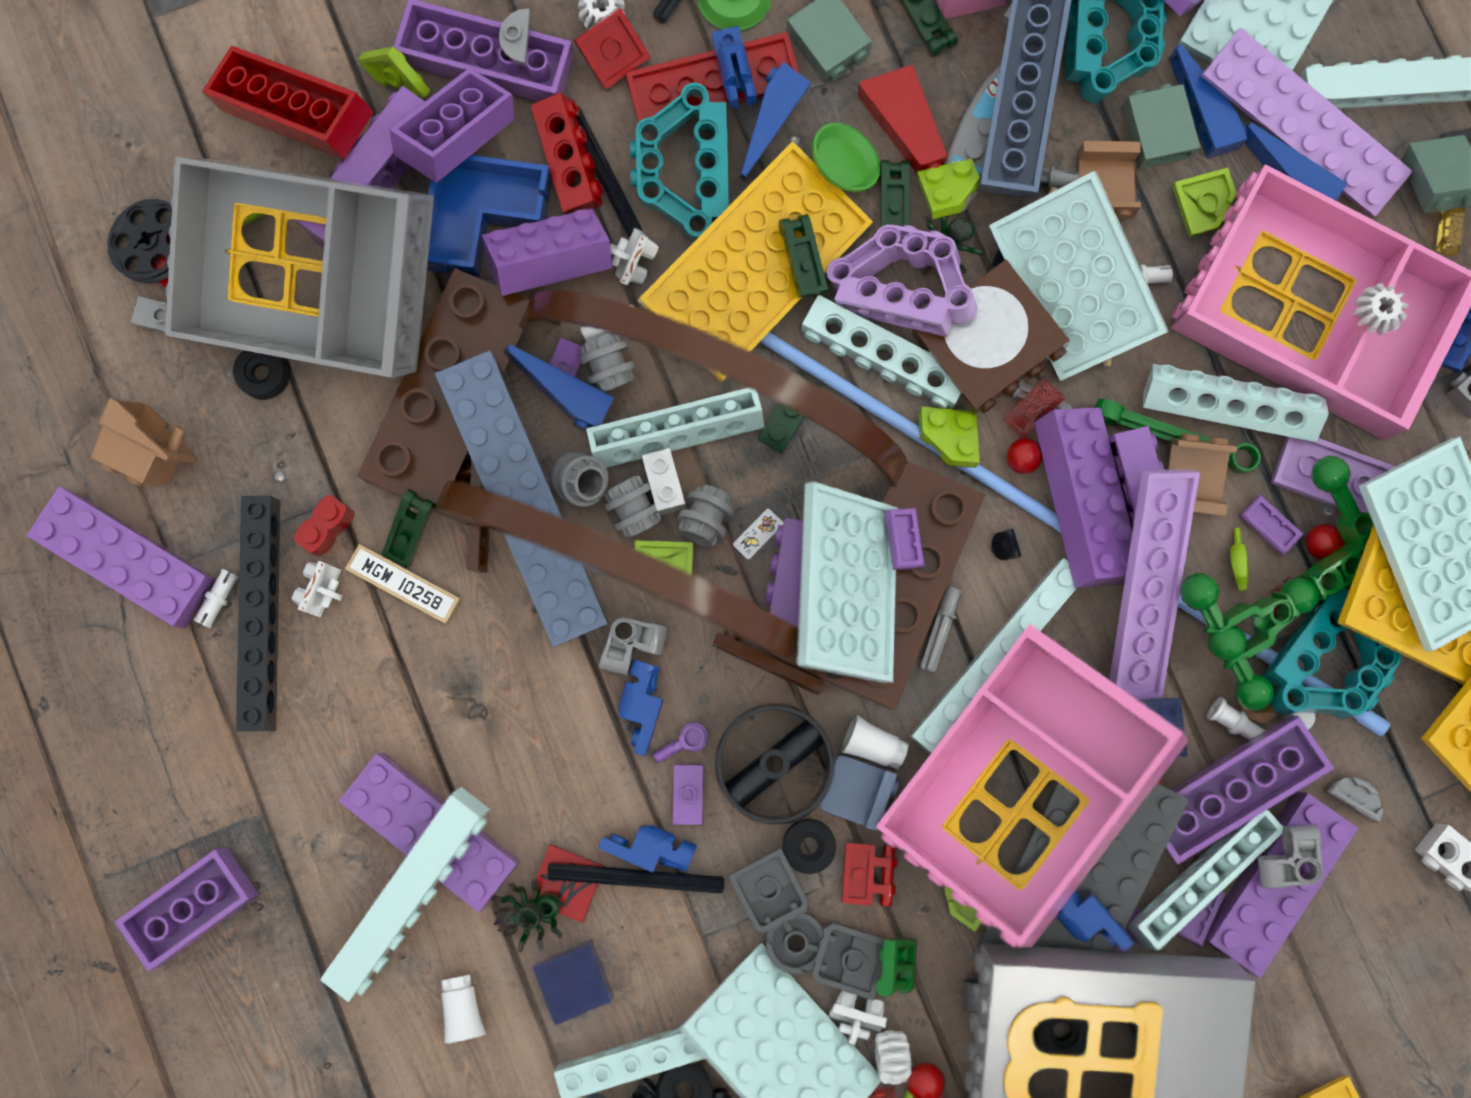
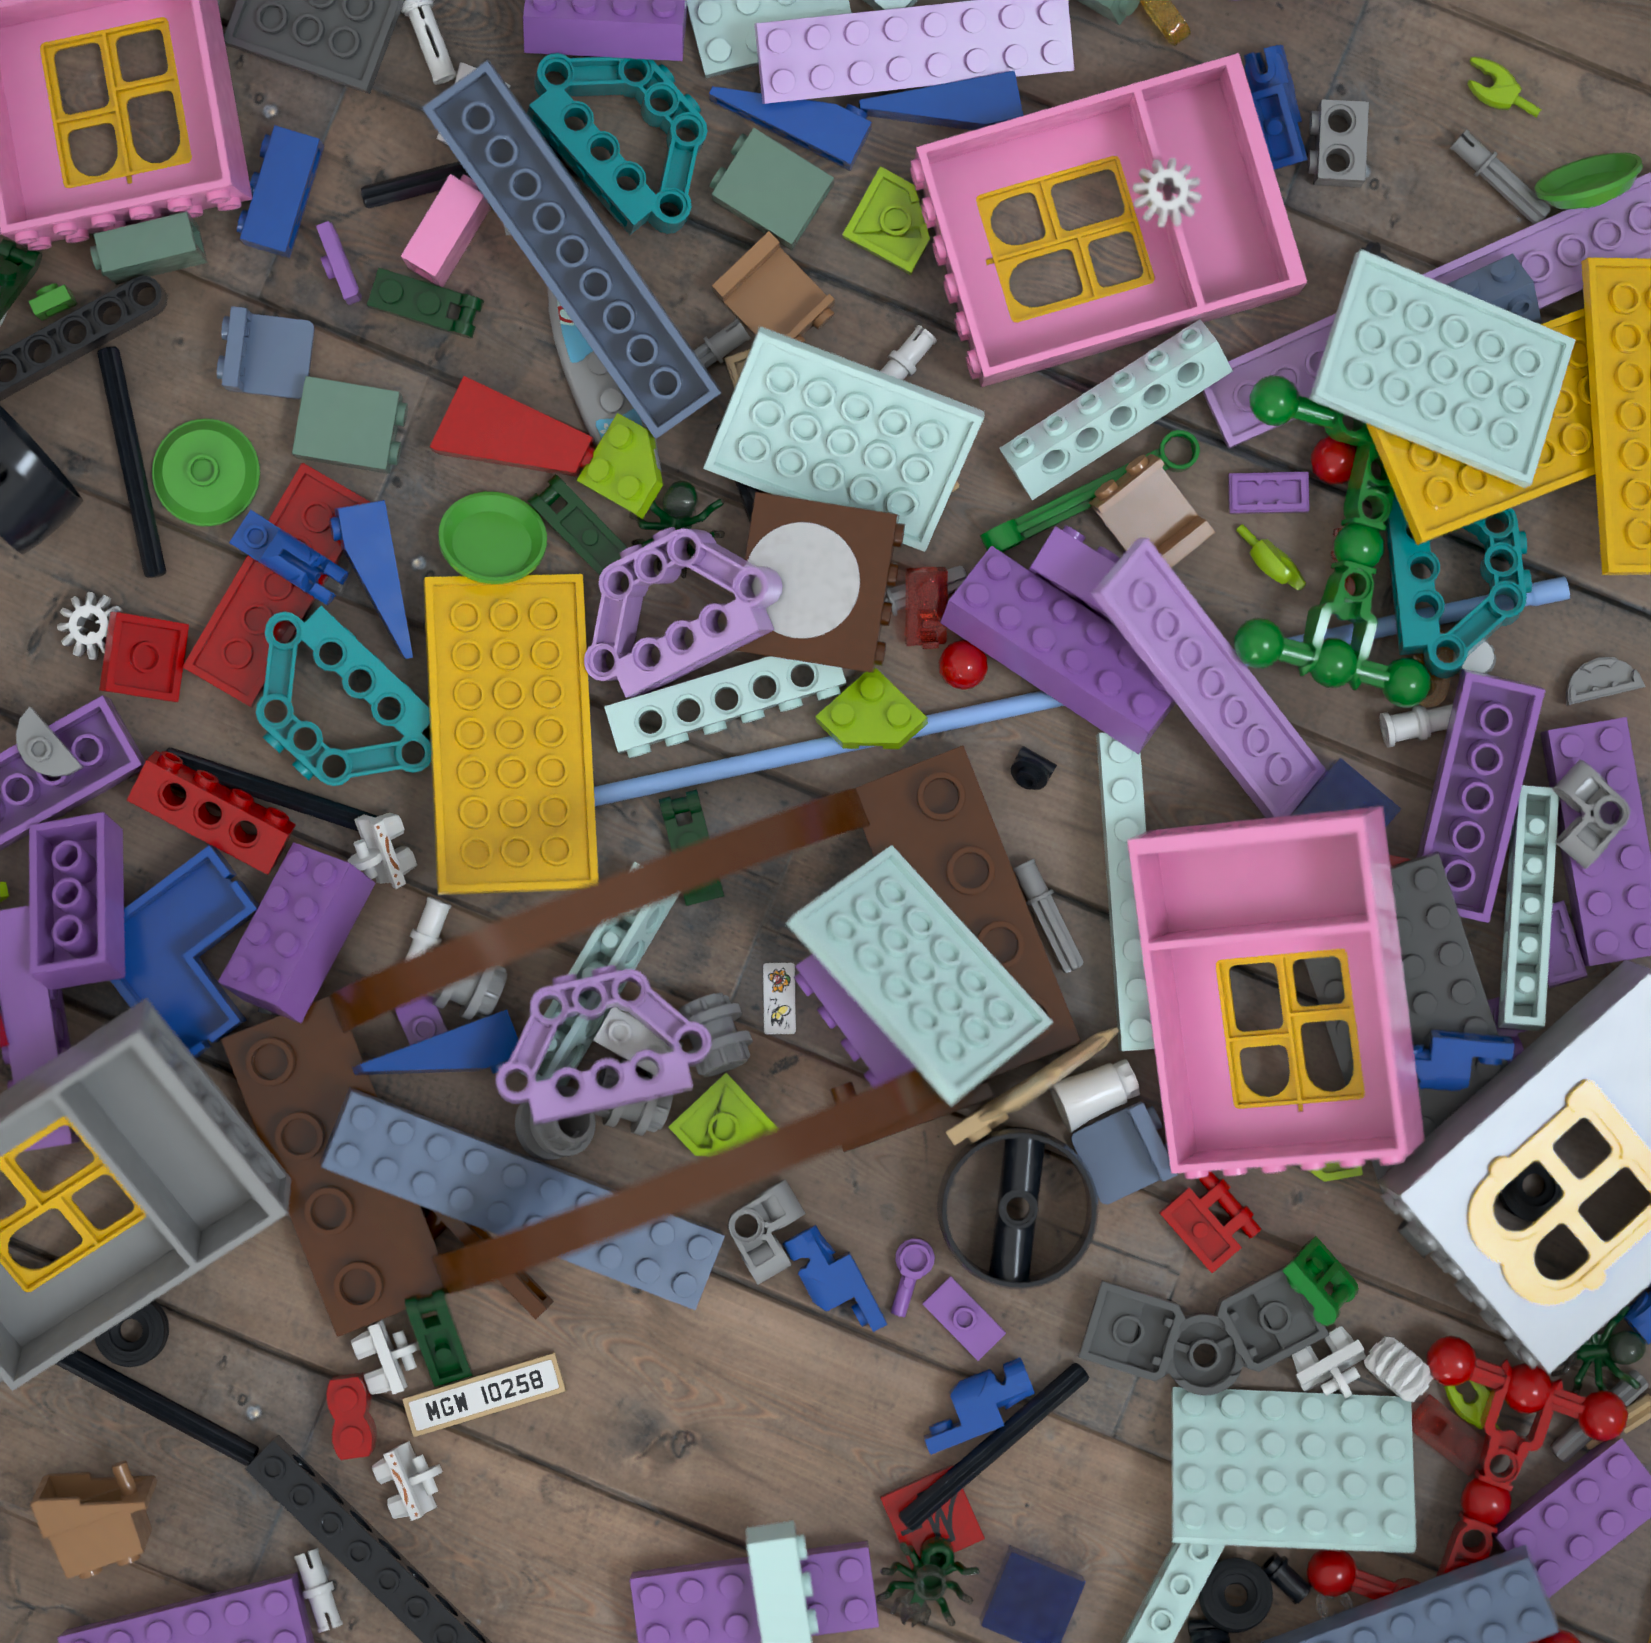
camera: 45 degrees left, 5 degrees up
(234, 420) = (159, 1407): none -> black axle
(367, 524) = (390, 1374): none -> white hips
(617, 419) = (648, 1008): none -> lavender brick
(792, 846) = (1150, 1251): black tyre -> none
(803, 256) = (553, 685): dark green plate -> none
(811, 700) = (995, 1111): none -> tan plate
(904, 539) = (929, 872): medium lavender plate -> none

